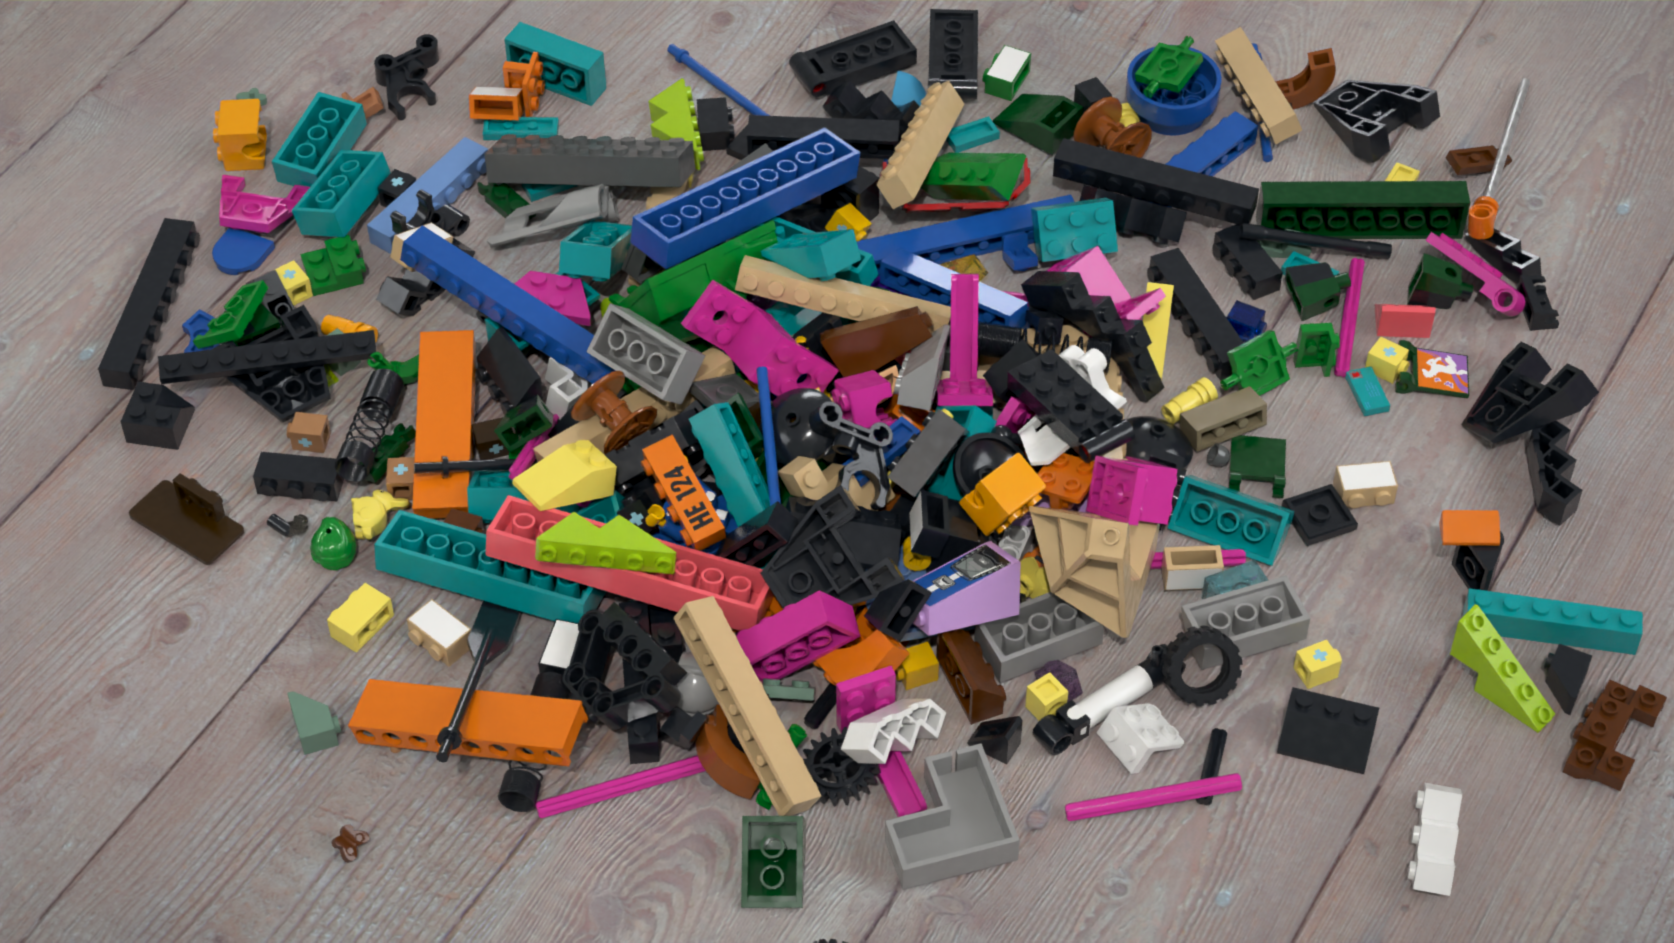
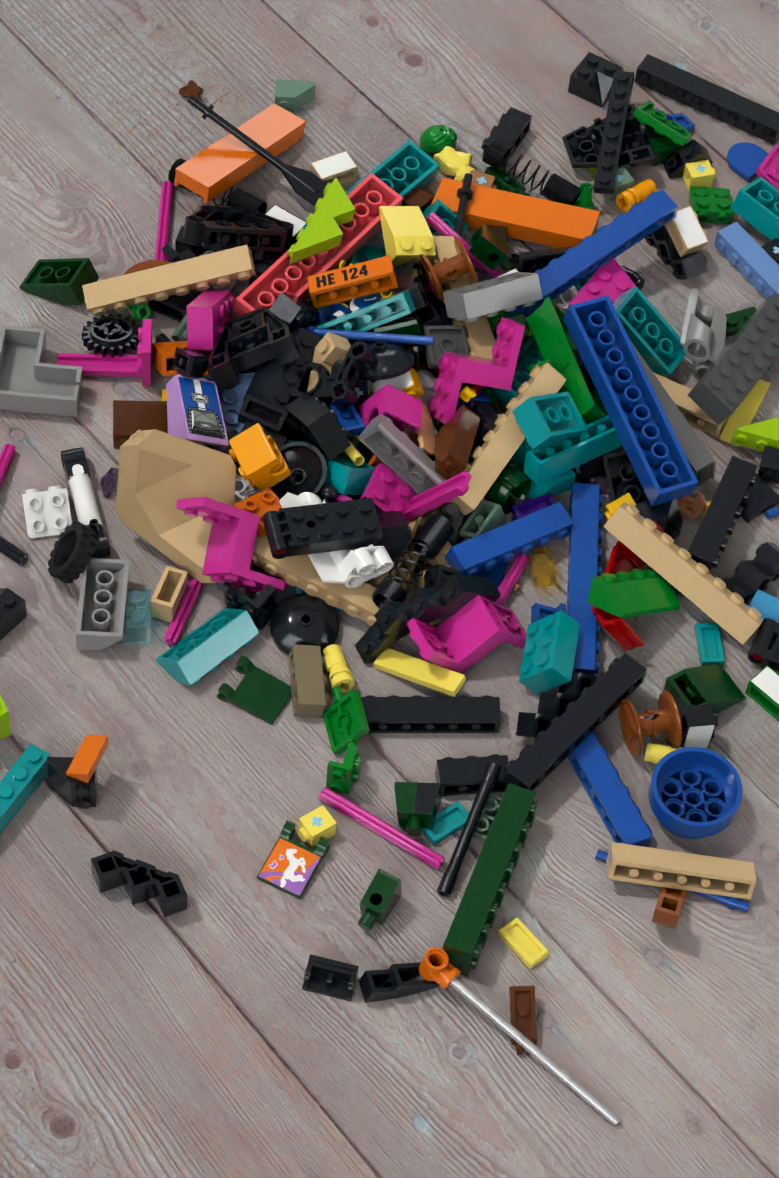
camera: 105 degrees right, 5 degrees up
(188, 518) = (495, 77): dark brown bracket -> none
(294, 527) = (466, 124): arm -> none
(309, 432) = (546, 151): medium nougat brick -> none
(360, 617) = (367, 137): light yellow brick -> none
(446, 217) = (718, 257): black piece -> none
(892, 729) = (114, 357): white brick -> none
(998, 737) = (87, 429): black slope -> none
(1045, 696) = (100, 460): light yellow brick -> none
(1169, 67) = (704, 779): green plate -> none
(1218, 455) = (275, 665): dark grey hinge -> none
(1247, 320) = (403, 743): clear blue brick -> none
(1317, 664) = (46, 639): light yellow brick -> none
(1320, 514) = (183, 707): black plate -> none
(1366, 484) = (195, 749): brick -> none
(1367, 391) = (293, 802): teal tile -> none
(1368, 111) = (622, 952): black wedge -> none
(1404, 320) = (360, 862): coral slope -> none
(1494, 286) = (361, 936): dark pink hinge -> none
(1518, 401) = (218, 888): black wedge -> none

